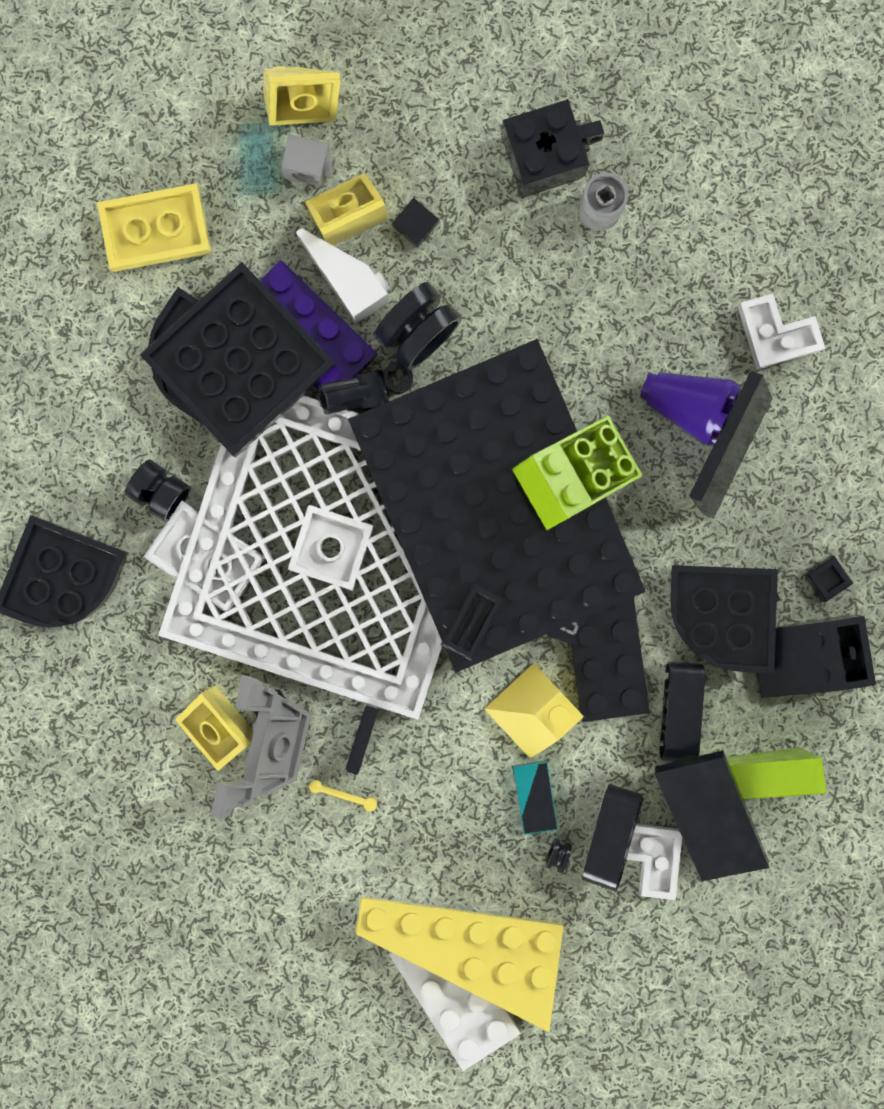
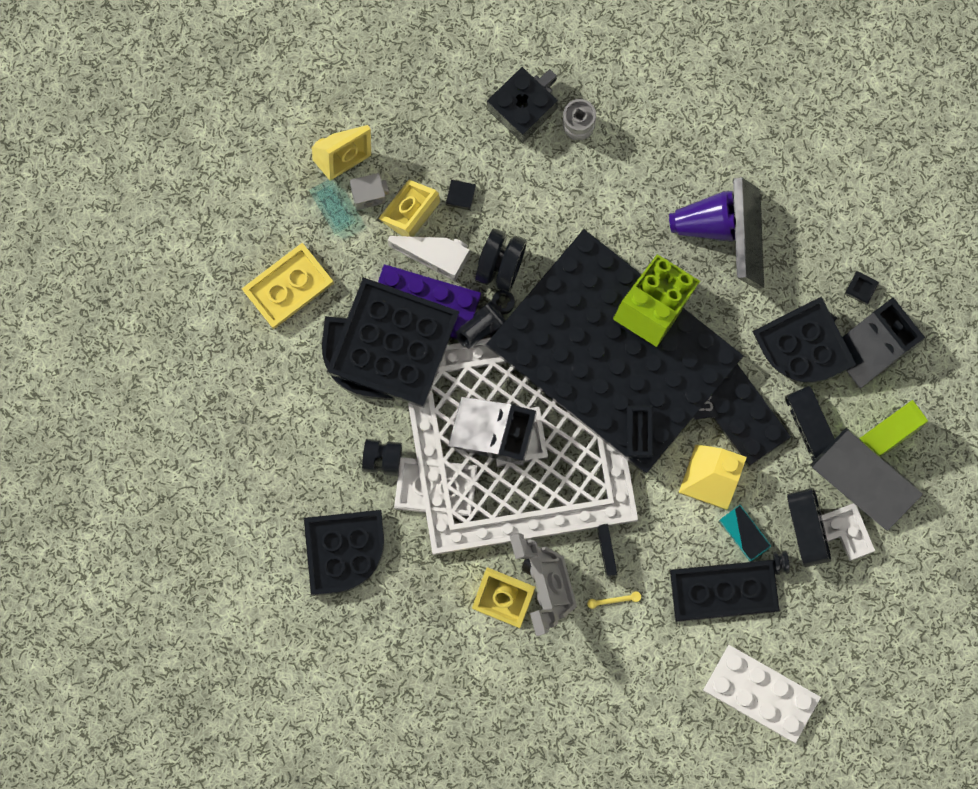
camera: 25 degrees left, 10 degrees down
(300, 528) = (493, 429): none -> slope
(475, 851) = (724, 590): none -> black tile
(487, 954) = (767, 652): light yellow wing -> none
(773, 341) = (739, 152): white plate -> none

